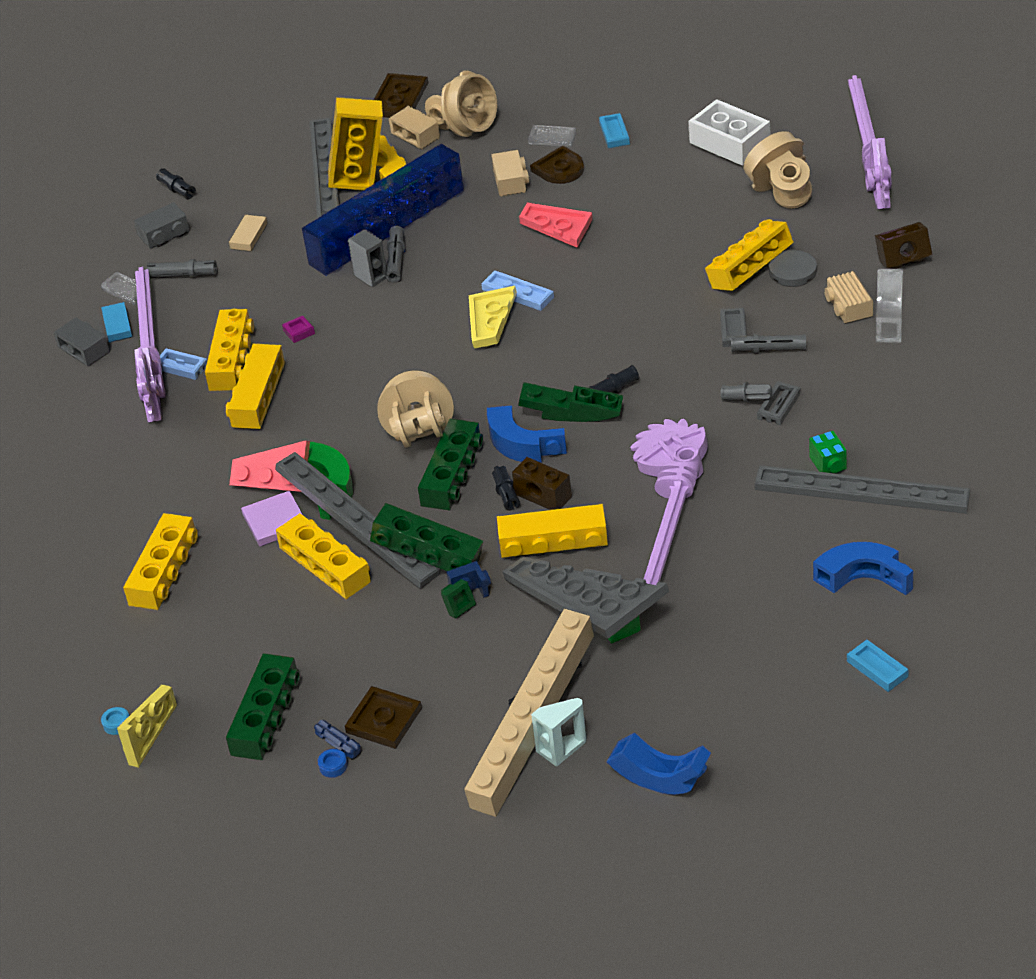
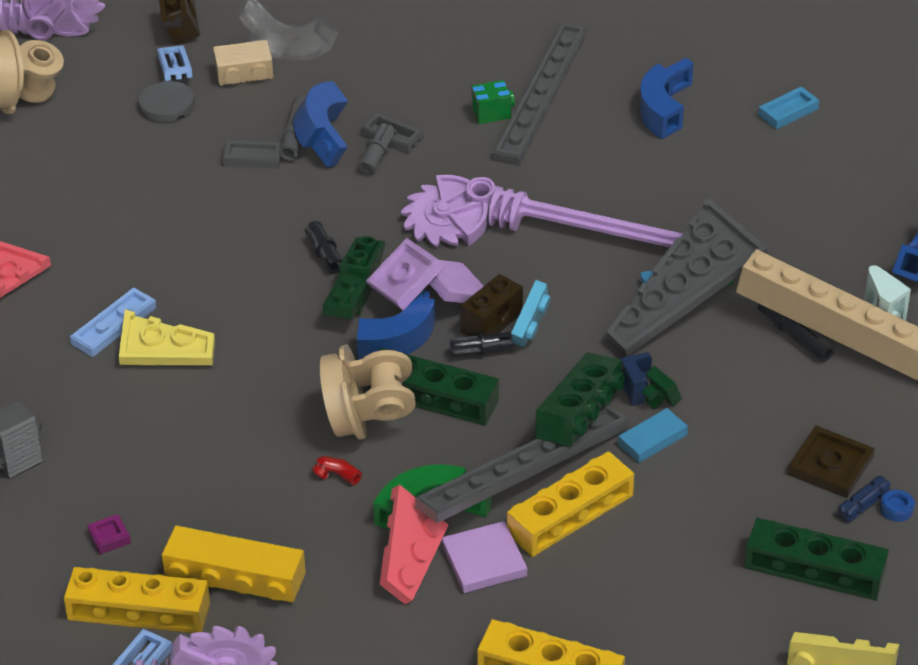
camera: 90 degrees left, 0 degrees up
(365, 428) = (338, 466): none -> red arm
(409, 602) = (652, 435): none -> dark azure tile
(529, 501) = (531, 314): none -> medium azure wing
(552, 530) = (573, 303): yellow brick -> none
(559, 419) = (405, 274): none -> lavender tile
(572, 454) = (455, 282): none -> lavender tile
(749, 255) = (144, 122): yellow brick -> none
(769, 339) = (313, 123): none -> blue arch
(842, 261) = (175, 70): none -> light blue tile

